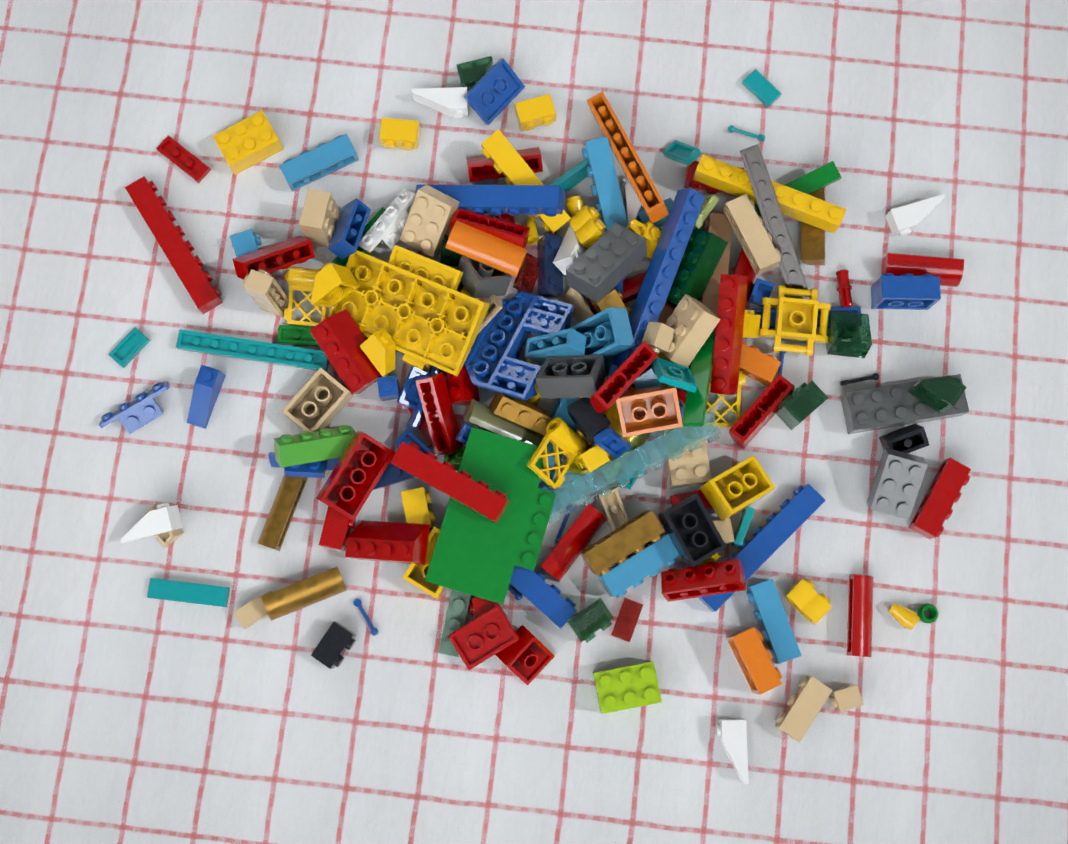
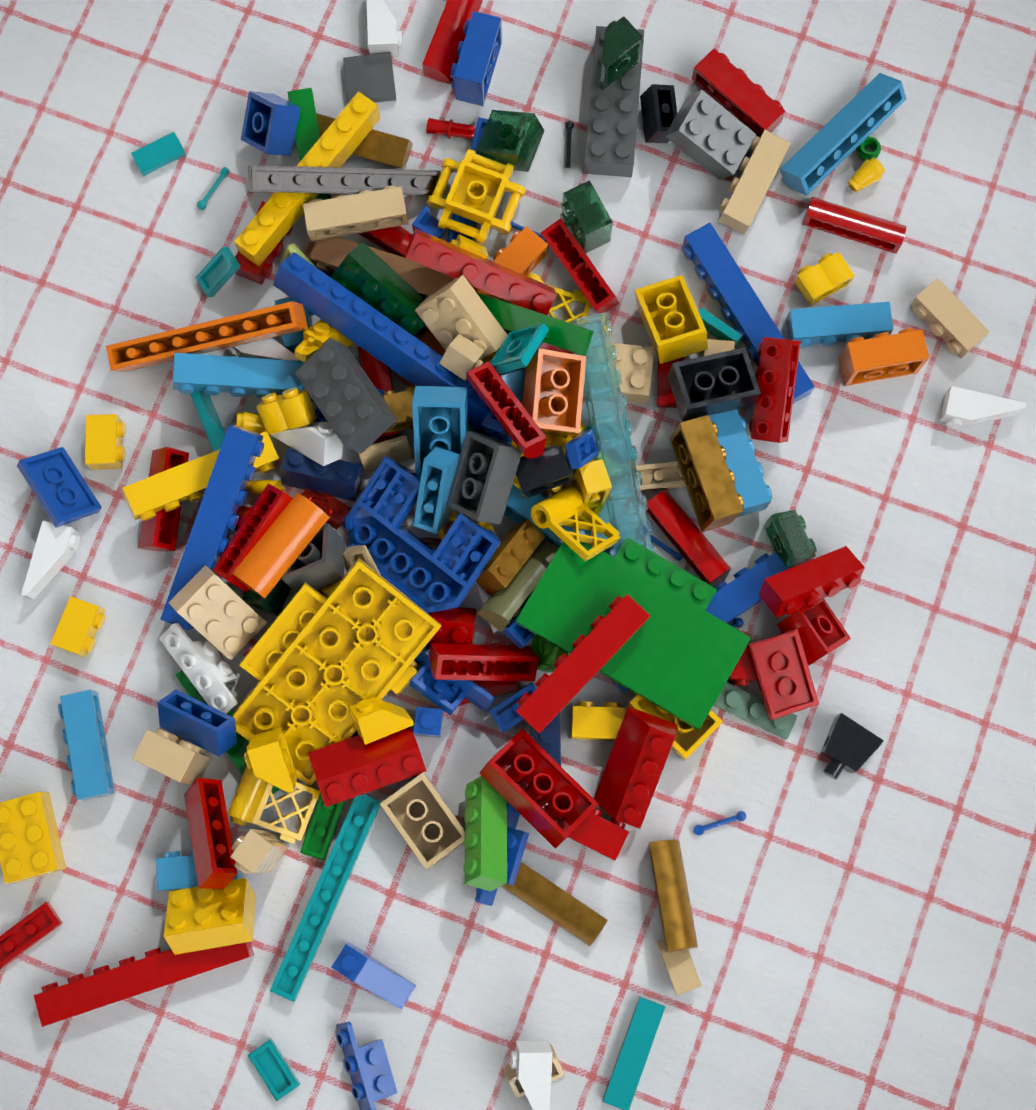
camera: 75 degrees left, 0 degrees up
(217, 274) = (210, 917): none -> yellow brick
(333, 645) = (749, 871): black brick -> none
(443, 700) = (848, 746): none -> black torso
(472, 71) = (23, 510): clear green slope -> none
(559, 642) = (811, 581): none -> red brick
(627, 619) = (797, 497): clear red plate -> none
(627, 687) = (881, 516): lime brick -> none
(804, 156) = (270, 123): none -> blue brick
(845, 698) = (948, 266): tan brick -> none
(867, 220) = (370, 76): none -> dark grey tile
(870, 527) = (754, 181): none -> tan brick
(933, 589) = (843, 133): none -> dark azure brick

